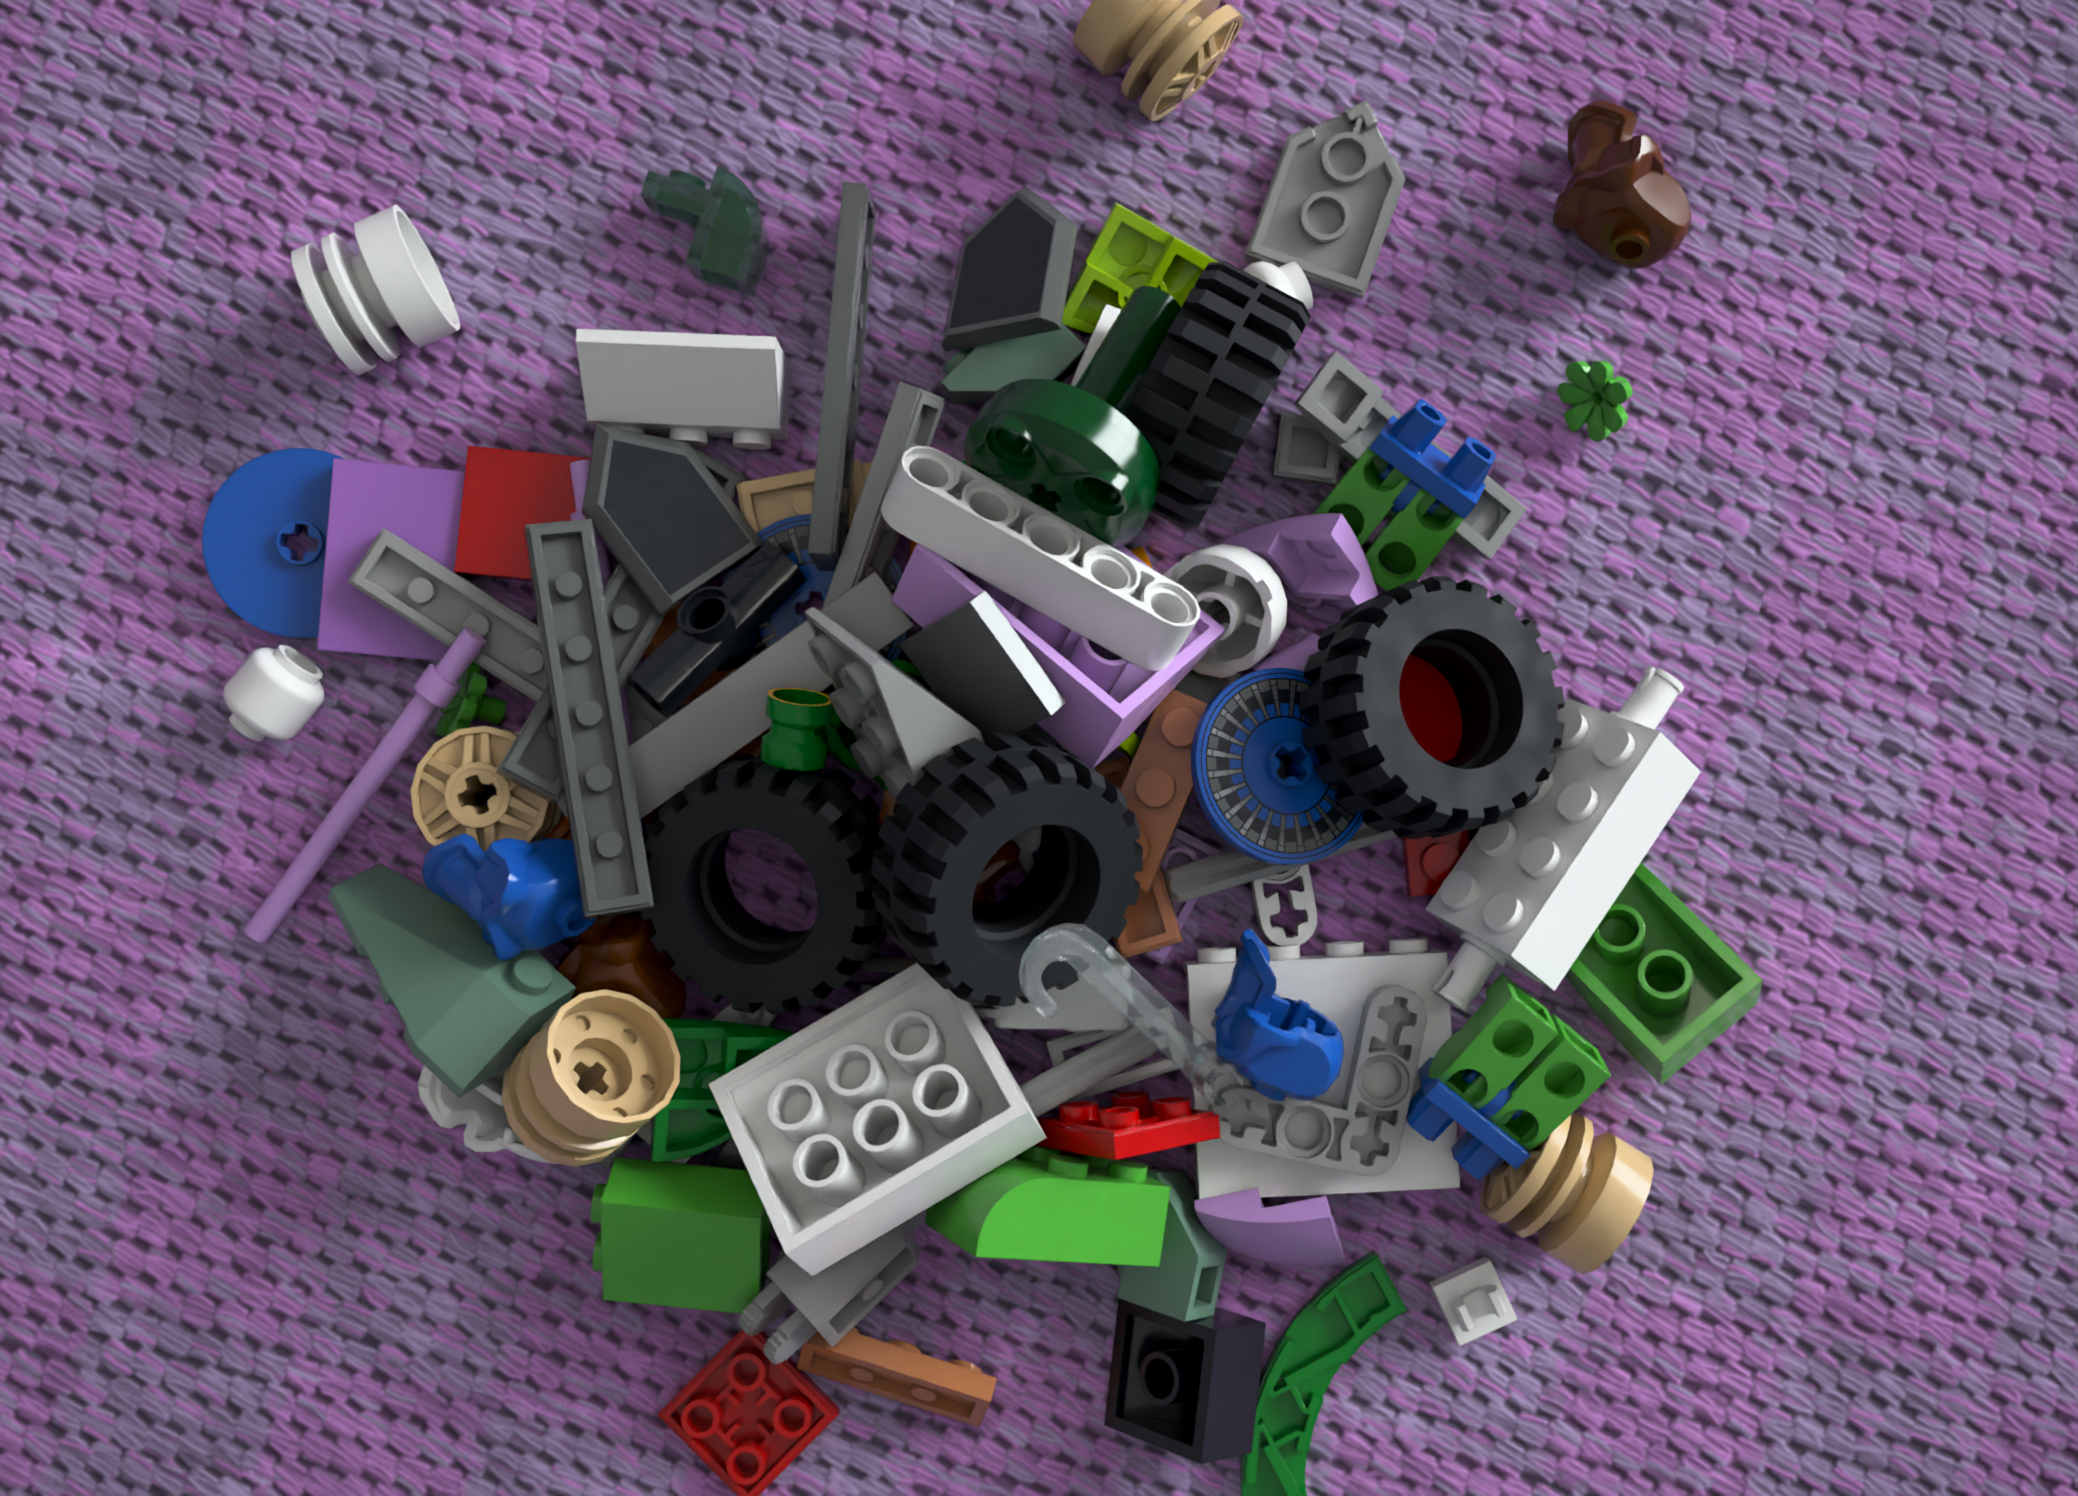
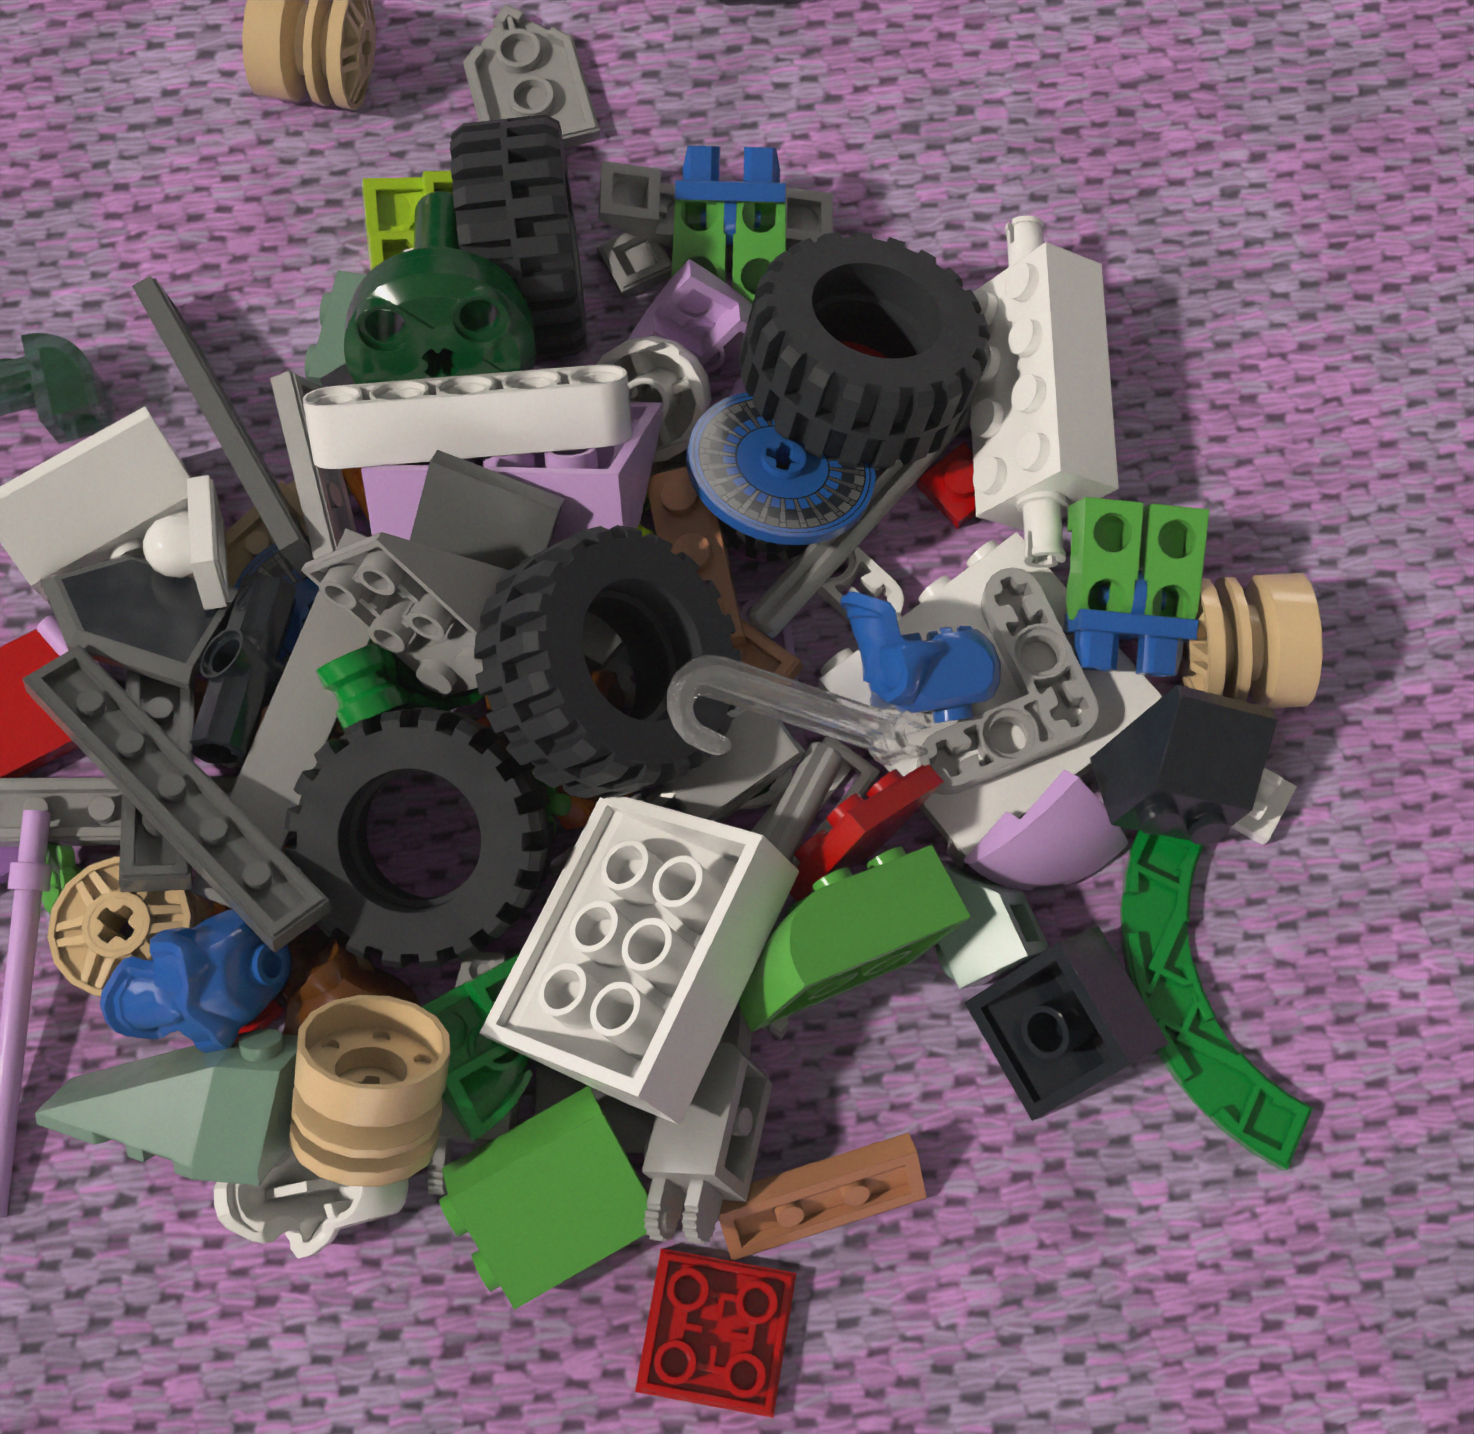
camera: 30 degrees left, 15 degrees down
(743, 485) = (193, 544): none -> white tile
(1011, 274) = (312, 272): tile -> none
(1426, 1261) = (1186, 765): none -> black slope
(1595, 398) = (824, 89): bright green plant -> none
(1661, 977) = (1197, 446): bright green slope -> none

